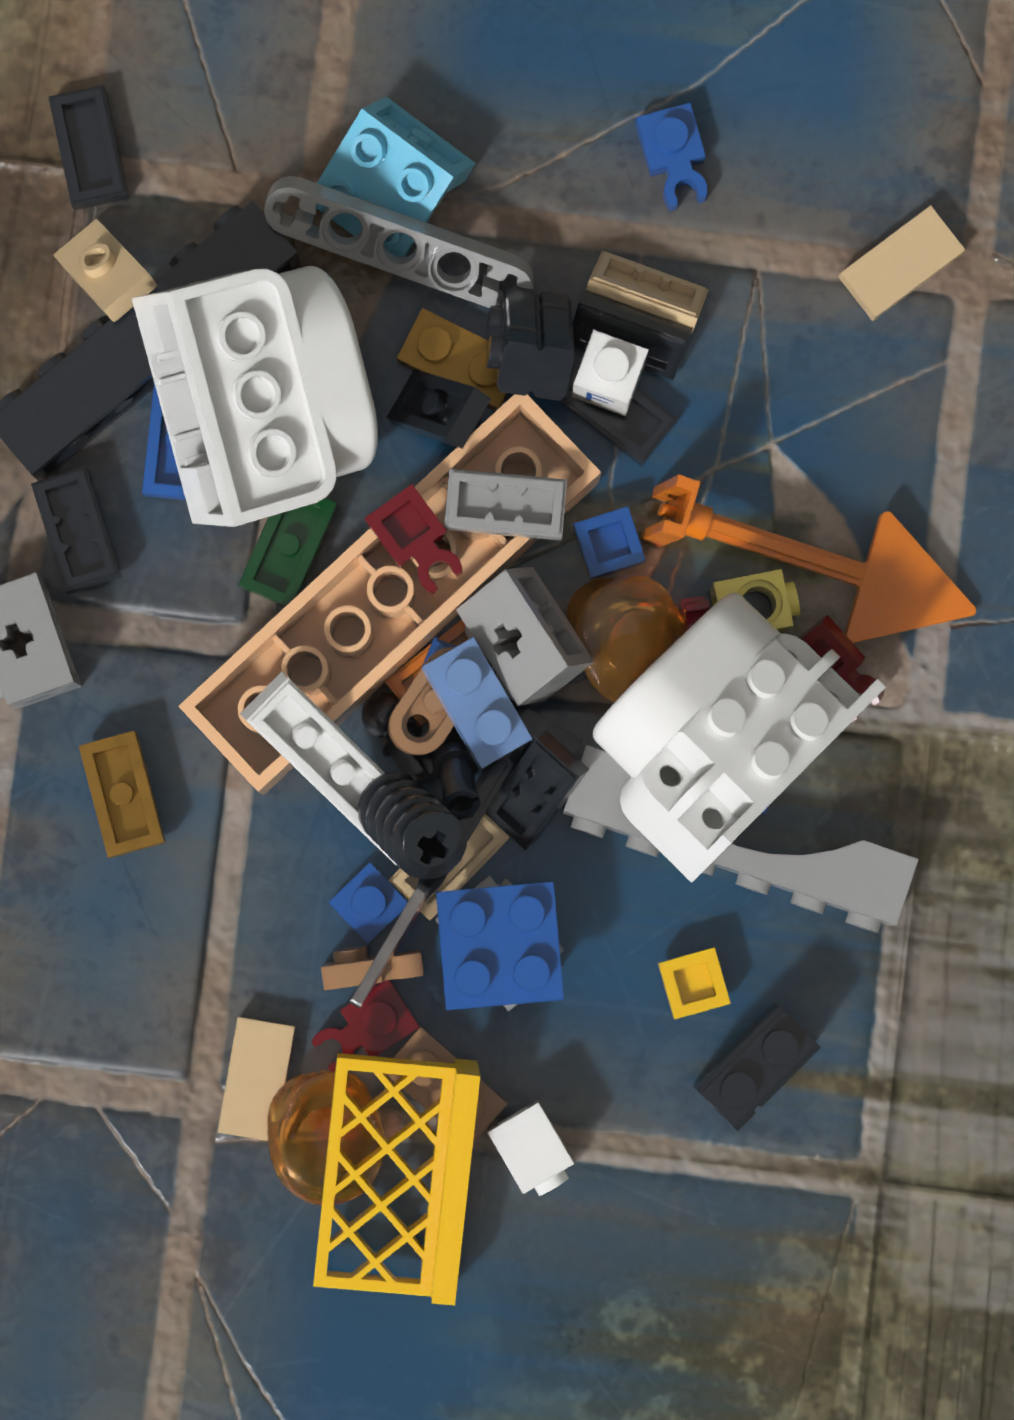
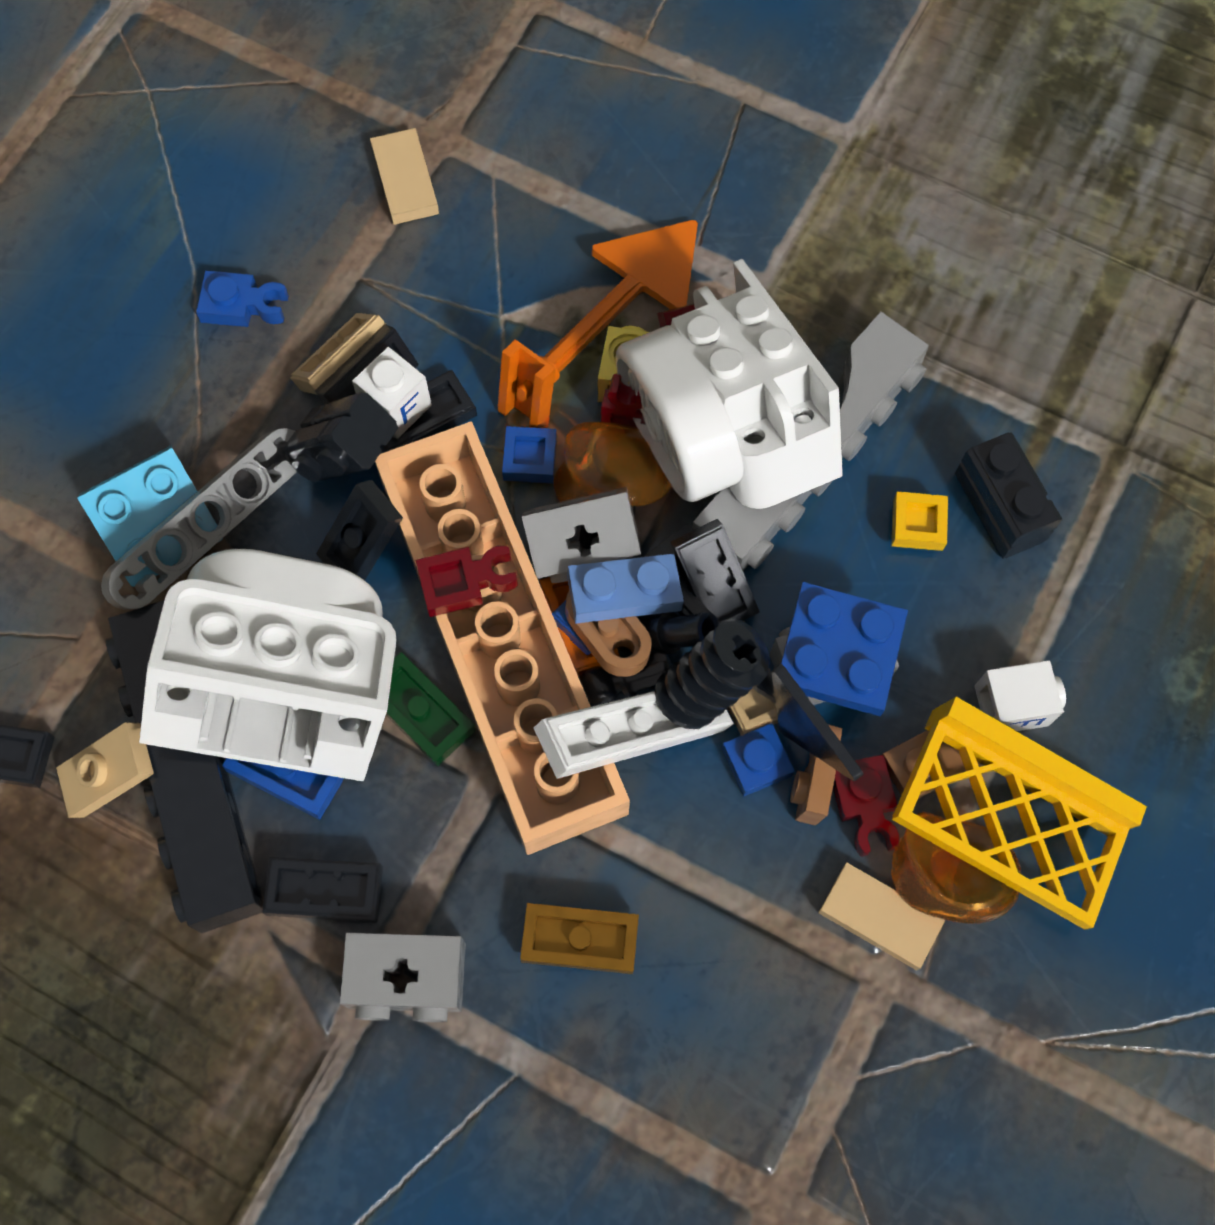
camera: 70 degrees left, 15 degrees down
(451, 353) = (309, 521): pearl gold plate -> none
(505, 504) = (466, 496): light grey plate -> none

